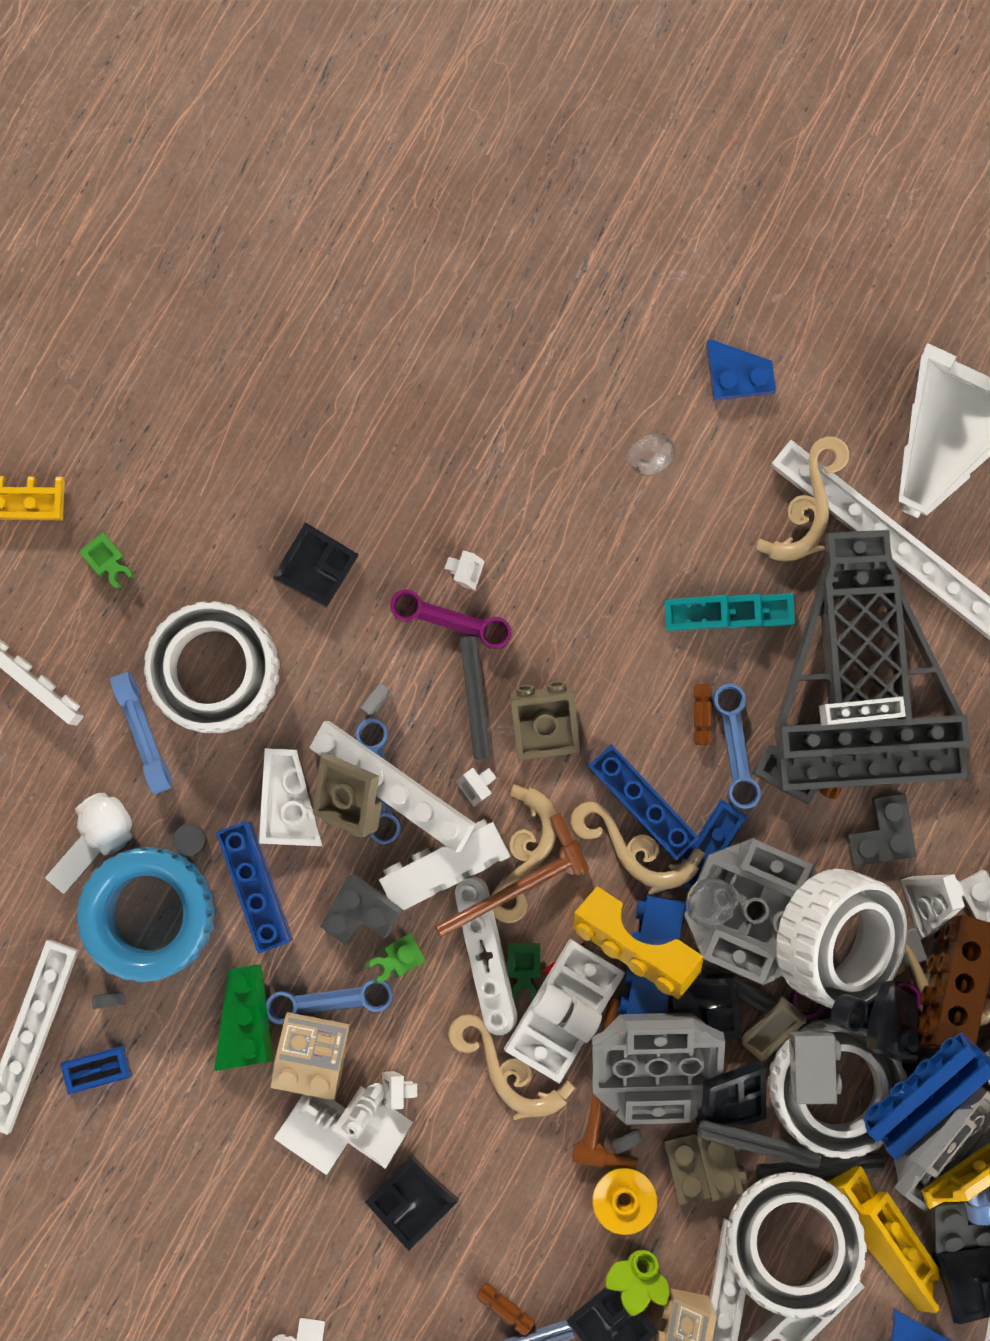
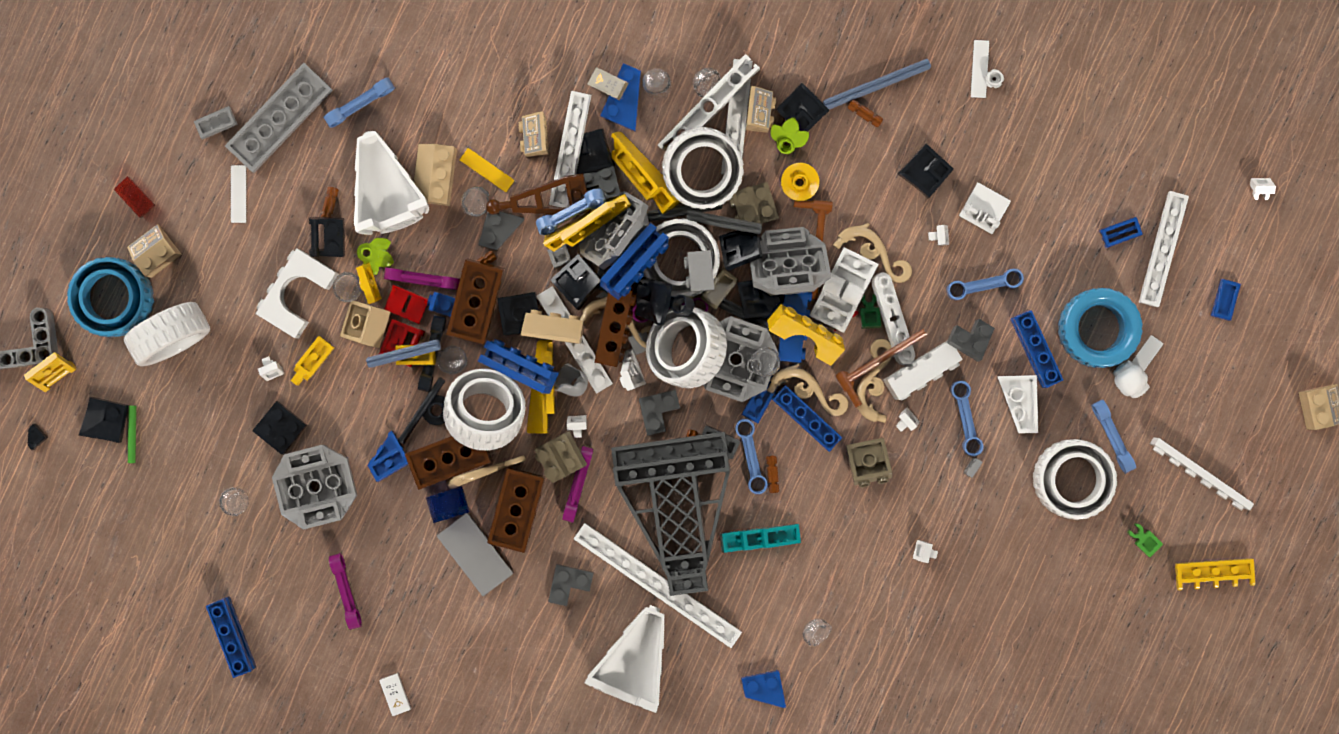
camera: 170 degrees right, 5 degrees up
(108, 1000) = (1118, 274): dark grey tile -> none
(189, 840) = (1077, 373): dark grey tile -> none
(244, 1021) = (1035, 268): green wing -> none
(310, 1056) = (994, 251): tan slope -> none
(315, 565) = (1016, 547): black plate -> none
(347, 796) = (986, 407): dark tan plate -> none
(371, 1125) = (954, 214): white hinge -> none
(397, 788) = (960, 416): white plate -> none
(399, 957) = (945, 314): bright green plate -> none
(450, 619) = (931, 520): magenta piece -> none
(475, 697) = (912, 474): dark grey axle -> none
(626, 1141) = (801, 216): dark grey tile -> none
(819, 504) = (712, 608): tan plant -> none
(862, 711) = (681, 483): white piece -> none

